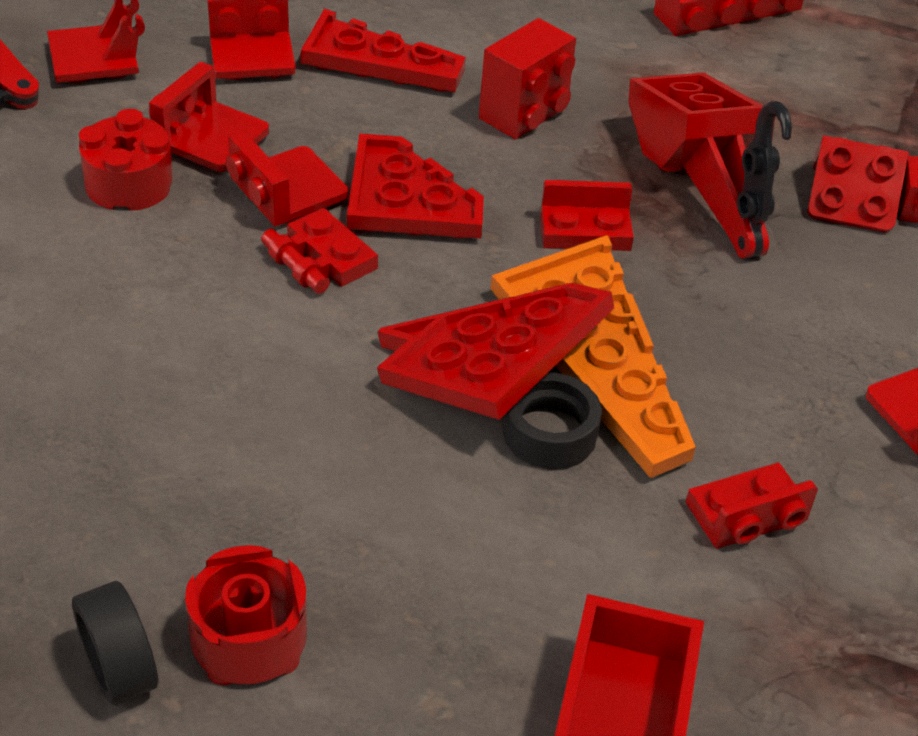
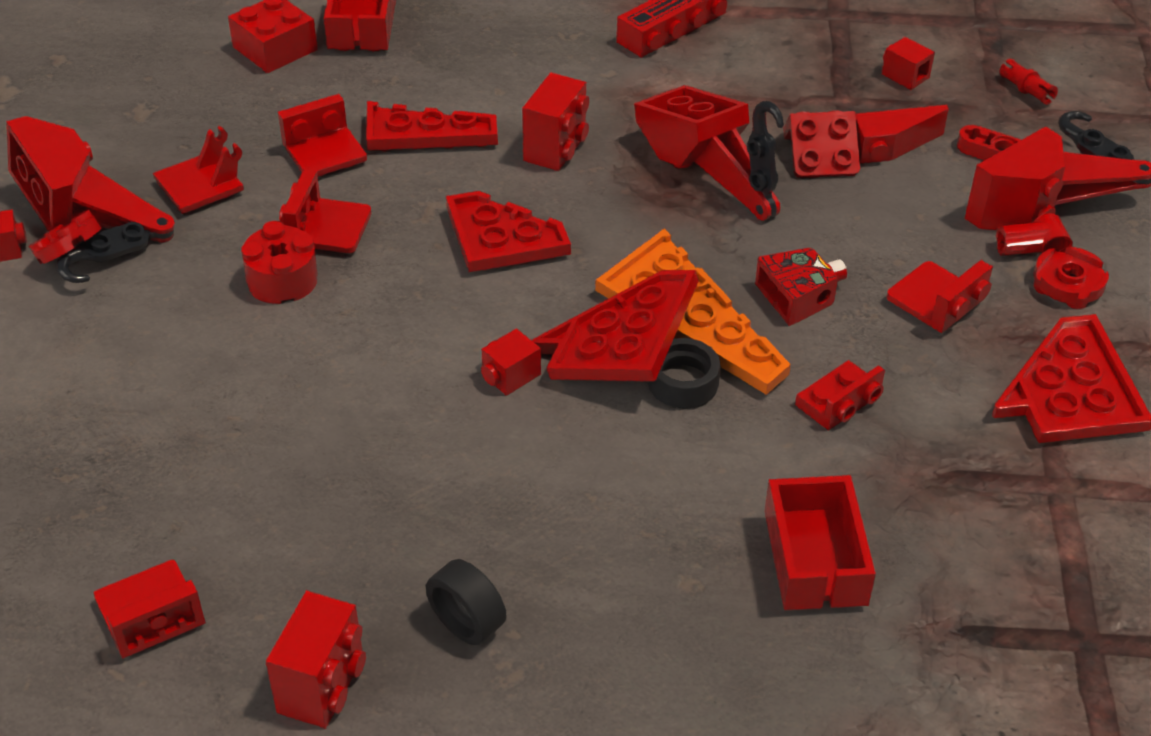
camera: 15 degrees left, 0 degrees up
(247, 616) = (544, 560): red brick -> none
(285, 183) = (406, 248): red bracket -> none
(329, 249) = (458, 294): red plate -> none
(338, 348) = (511, 361): none -> red brick
(586, 211) = (639, 216): red bracket -> none
(754, 345) = (798, 282): none -> red torso

